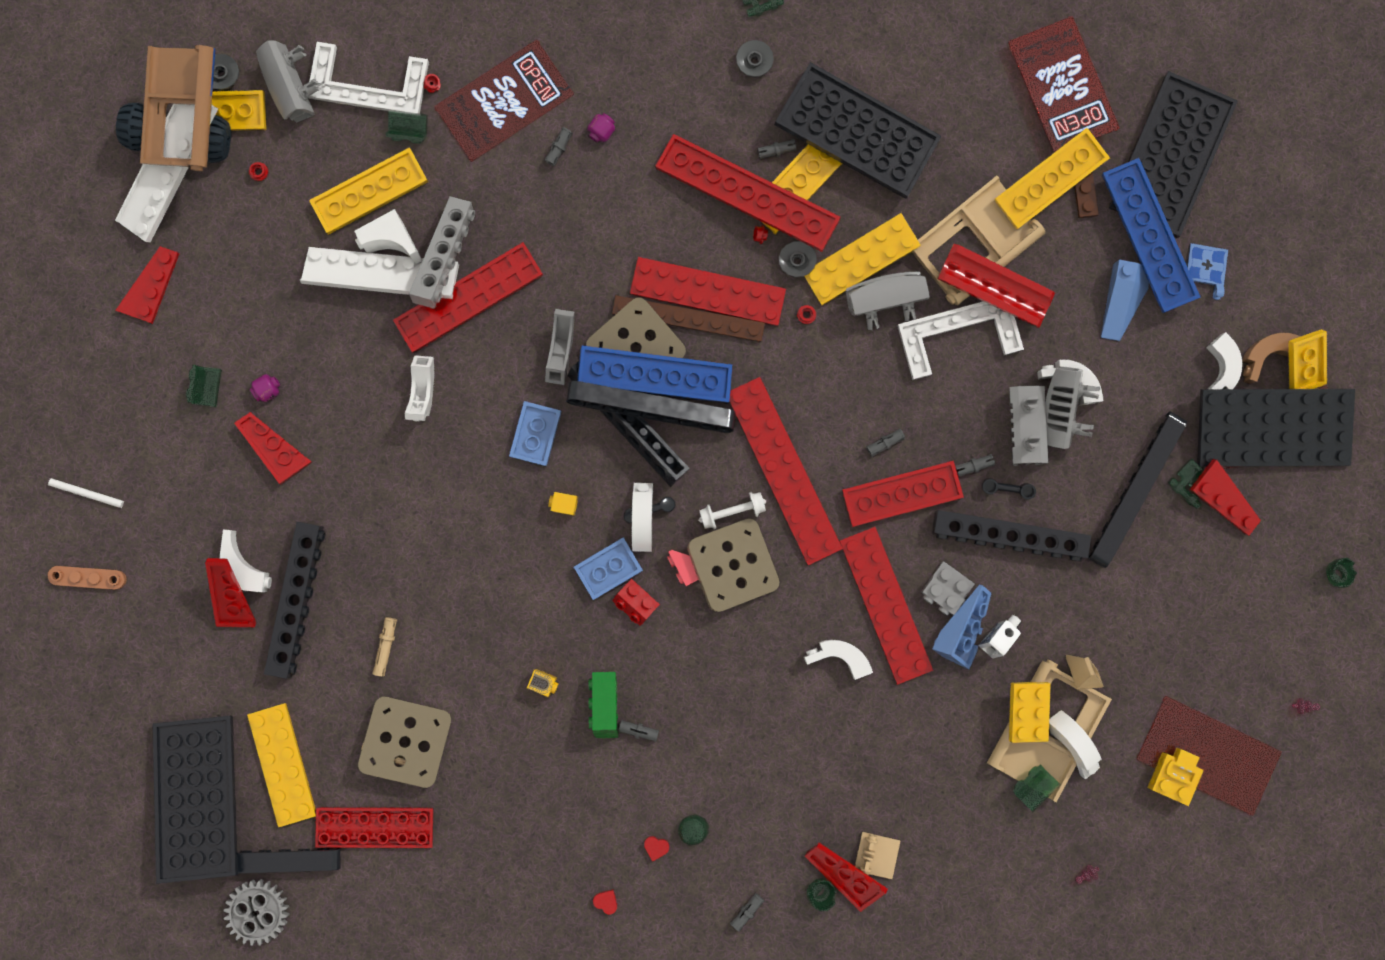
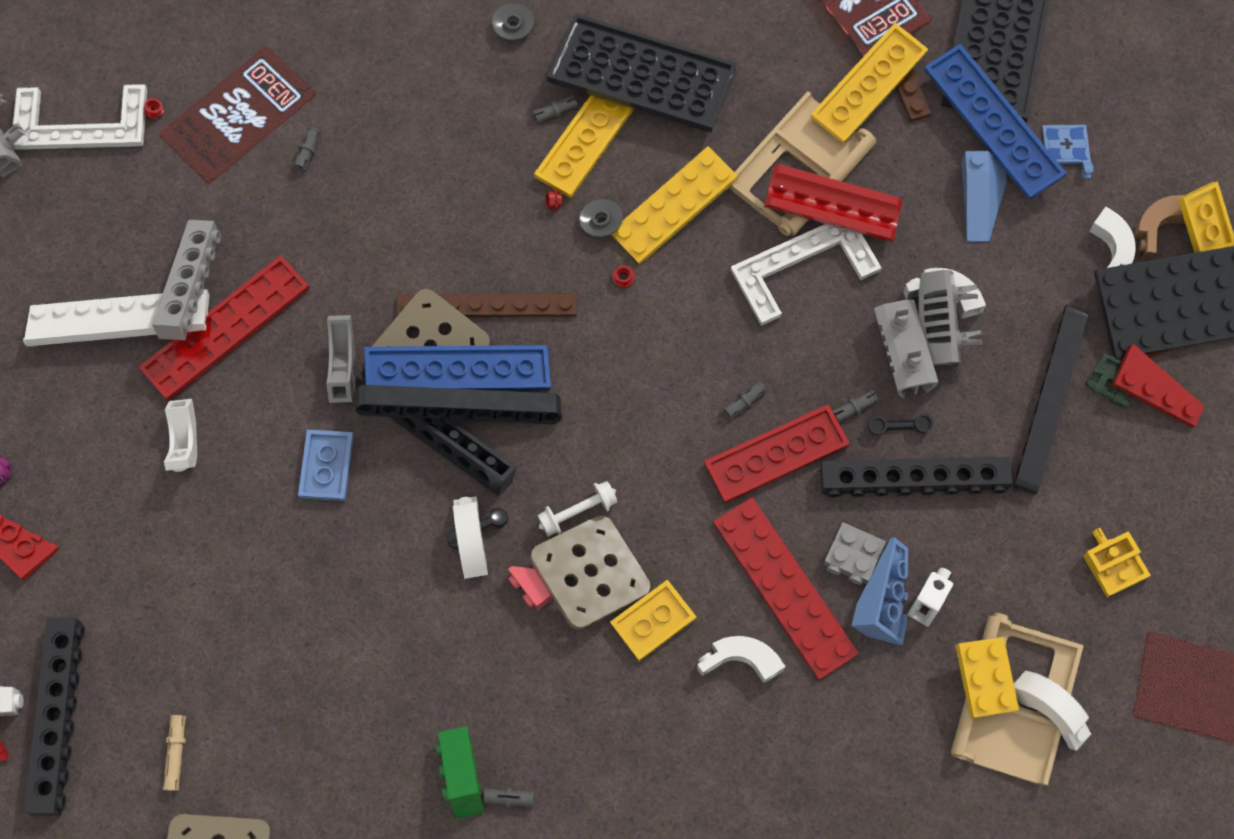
camera: 10 degrees left, 15 degrees down
(368, 191) = (93, 233): yellow plate -> none
(387, 233) = (119, 274): white arch -> none
(407, 126) = (130, 156): clear green bracket -> none
(543, 683) = (379, 759): brick -> none
(563, 503) = (372, 538): yellow brick -> none
(601, 128) = (352, 121): magenta head -> none
(608, 568) = (438, 606): medium blue plate -> none
(635, 602) = (478, 640): red bracket -> none
(707, 291) = (504, 271): red plate -> none
(748, 192) = (531, 157): red plate -> none
(776, 612) = (653, 620): none -> yellow plate
(784, 471) = (632, 456): red plate -> none
(887, 293) = (711, 232): light grey piece -> none
(1036, 787) = (1017, 770): clear green bracket -> none
(1084, 672) = (1042, 619): tan slope -> none
(1154, 636) = (1116, 562): none -> yellow plate
(1176, 776) = (1187, 724): yellow piece -> none

